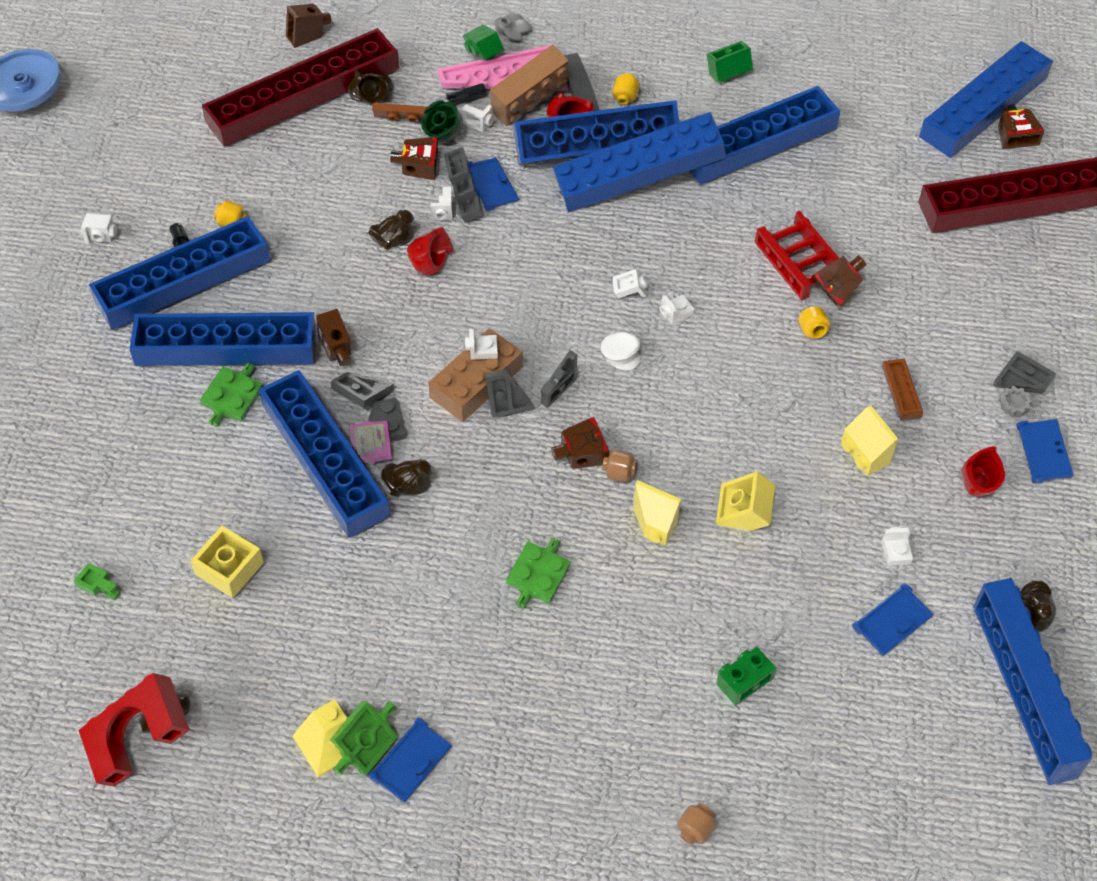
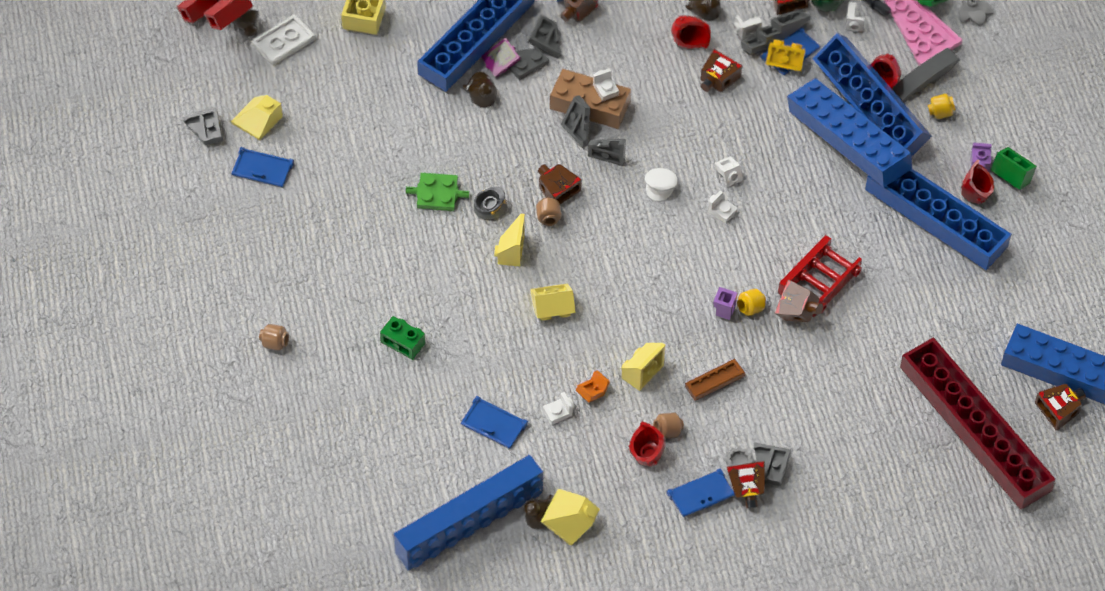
camera: 70 degrees right, 0 degrees up
(215, 672) = (283, 40): none -> white tile
(314, 809) = (205, 126): none -> wing
(364, 738) = (262, 131): bright green plate -> none
(493, 249) = (719, 72): none -> reddish brown torso
(503, 184) = (785, 56): none -> yellow bracket
(529, 85) = (894, 35): medium nougat brick -> none
(580, 521) = (490, 203): none -> dark grey piece
(702, 83) = (983, 153): none -> medium lavender brick
(738, 96) = (977, 184): none -> red helmet
(808, 347) = (725, 303): none -> medium lavender brick
(879, 502) = (593, 388): none -> orange bracket
(953, 449) = (669, 424): none -> medium nougat head
(1050, 397) = (748, 481): none -> torso
(1057, 576) = (570, 515): none -> light yellow slope

